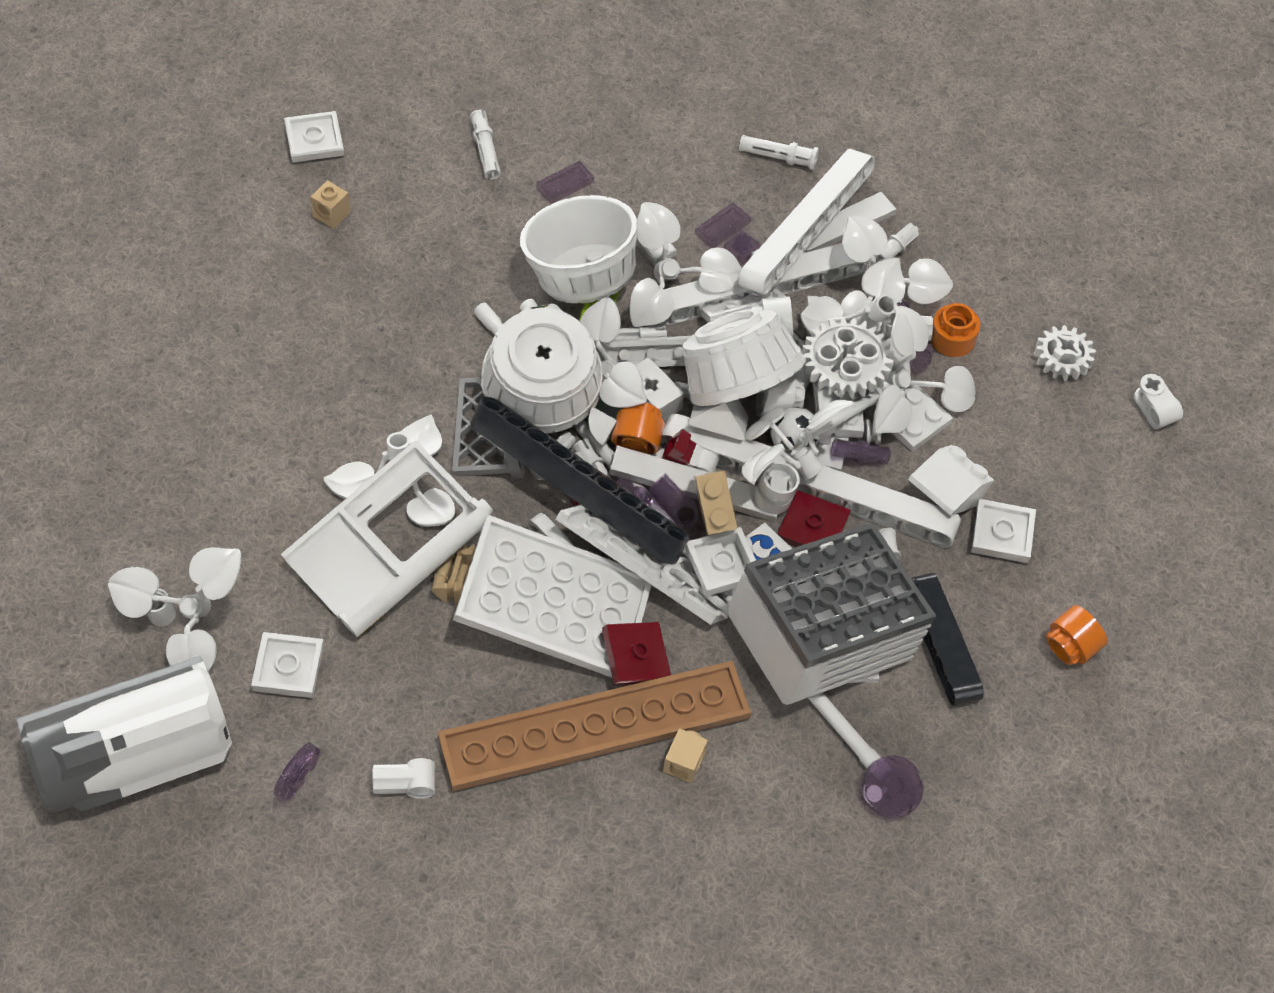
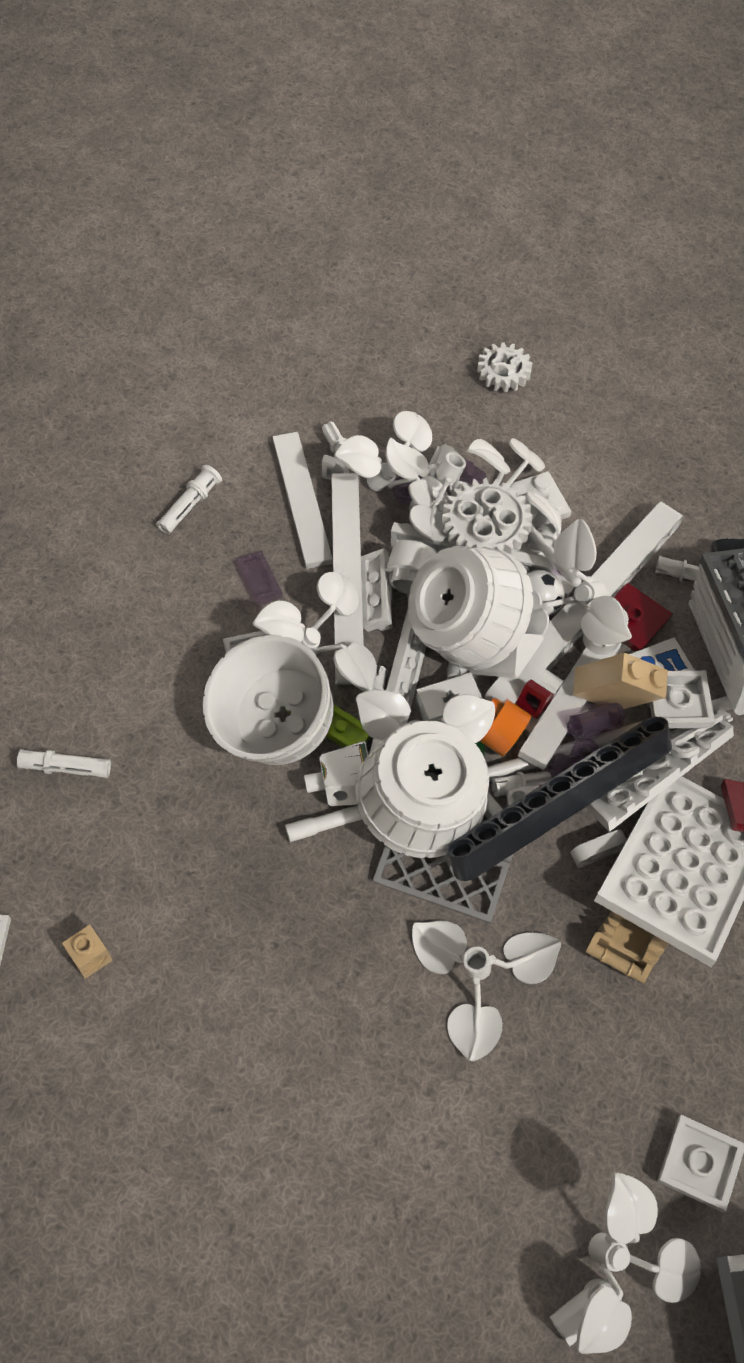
camera: 70 degrees left, 5 degrees up
(354, 568) = (601, 1054): white piece -> none
(565, 182) = (146, 702): clear purple tile -> none
(601, 425) = (494, 756): white tile -> none
(742, 246) = (295, 573): clear purple plate -> none
(806, 222) = (300, 503): white beam -> none
(952, 480) = (627, 491): white slope -> none
(955, 330) = (457, 430): orange piece -> none
(1003, 531) = (676, 477): white plate -> none
(1157, 405) = (577, 325): white piece -> none

